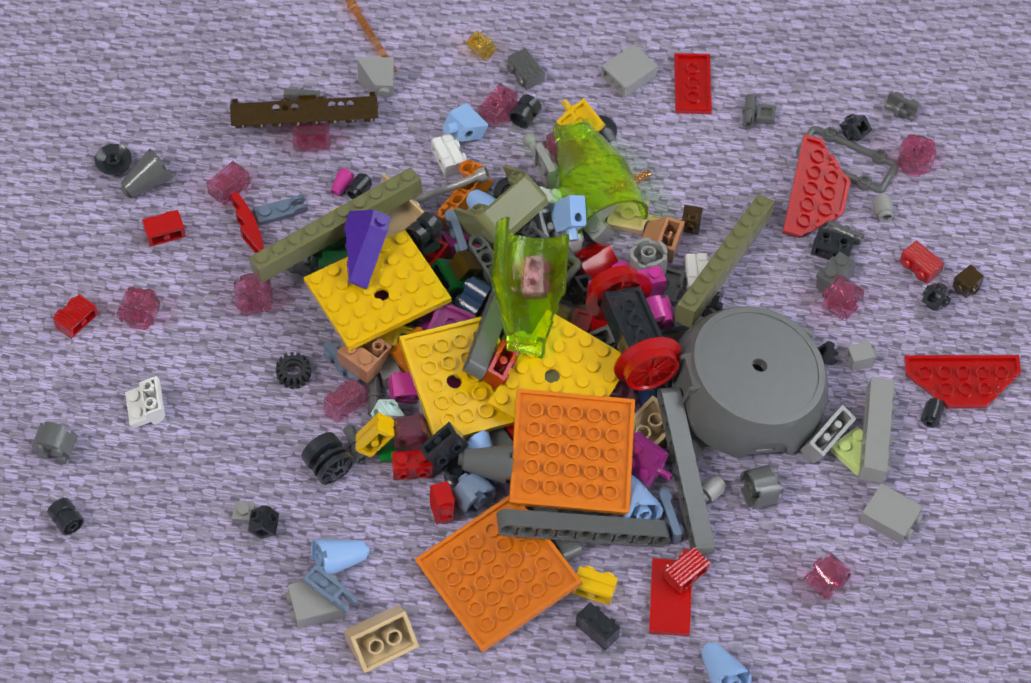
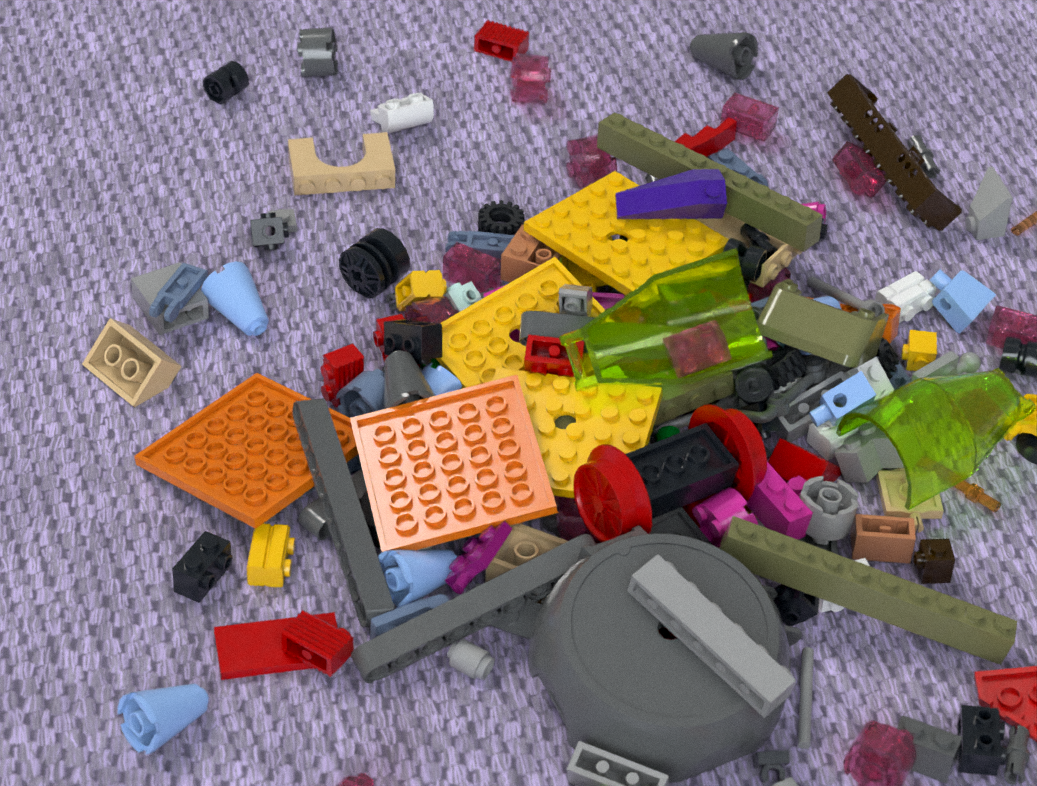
camera: 75 degrees right, 15 degrees down
(113, 153) = (735, 23): black dish -> none
(163, 228) = (657, 82): red brick -> none
(200, 481) = (315, 177): none -> tan arch
(314, 386) = (488, 243): none -> sand blue hinge
(400, 215) = (757, 239): none -> black pin
(459, 335) = (575, 300): none -> light grey slope
(500, 159) = (920, 349): none -> yellow brick
(760, 486) = (489, 706): dark grey brick -> none
(775, 343) = (711, 635): none -> light grey brick

